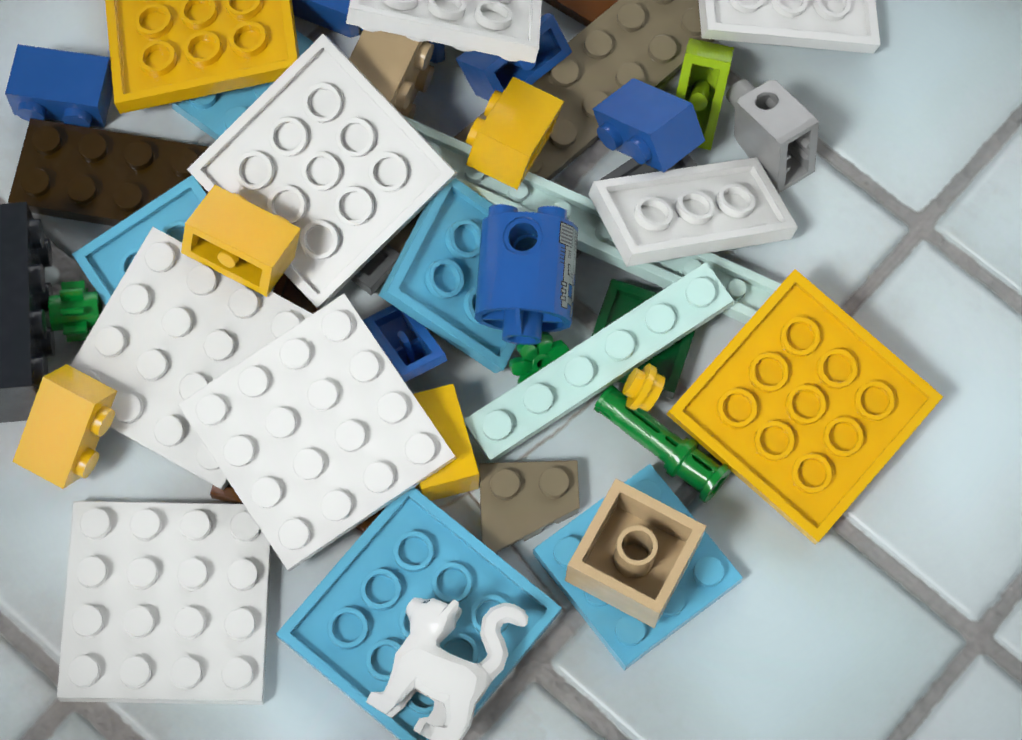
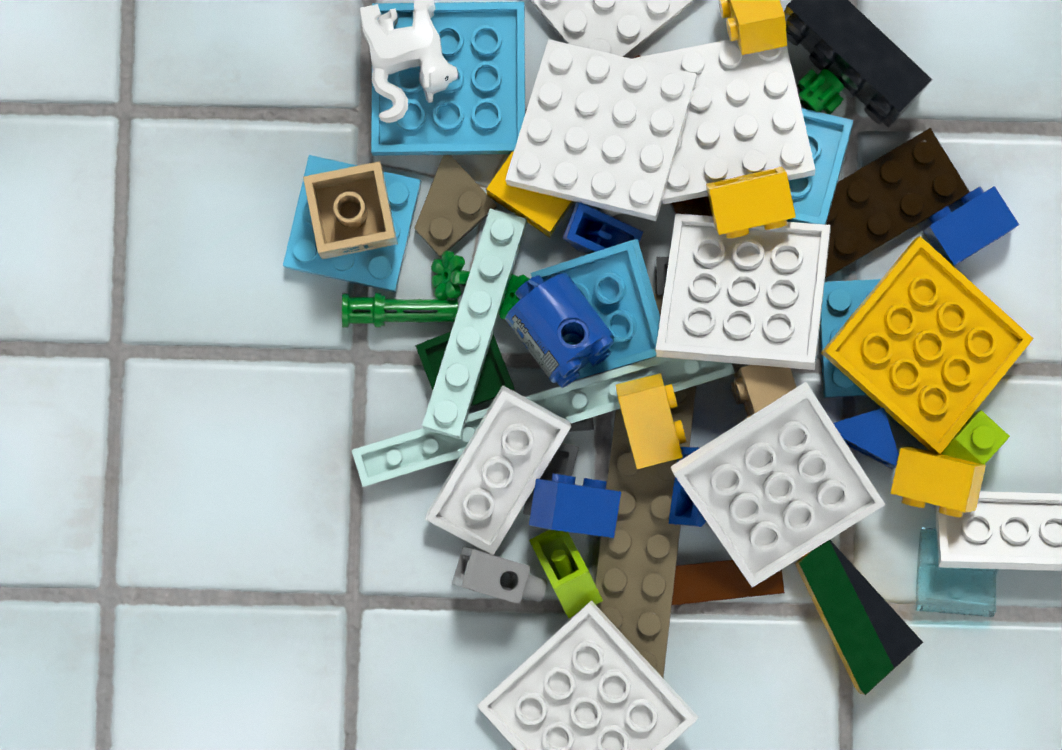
camera: 145 degrees right, 15 degrees up
(585, 431) = (448, 276): none -> green plant
(643, 388) = (433, 326): yellow plate -> none
(805, 406) = (327, 400): yellow plate -> none

